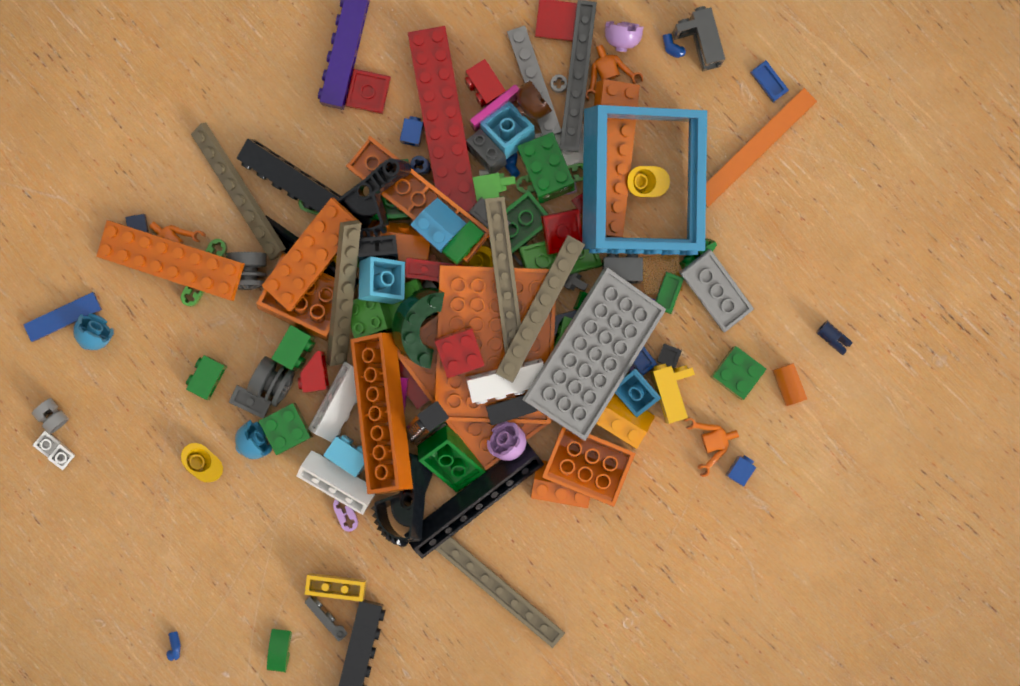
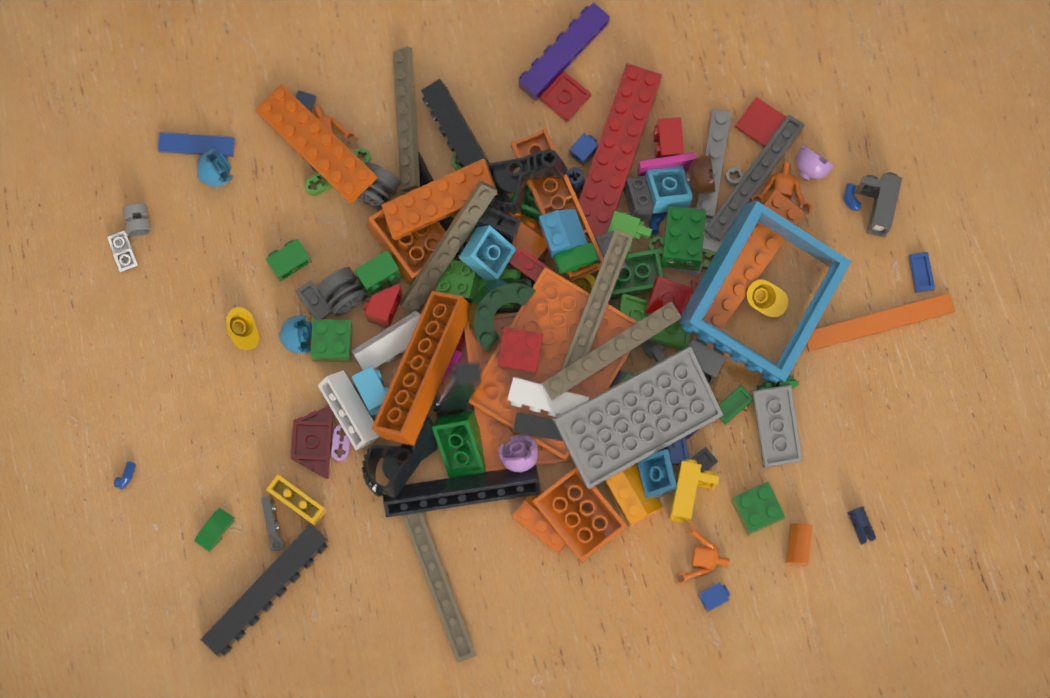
camera: 30 degrees right, 10 degrees down
(320, 526) = (313, 441): none -> dark red wing

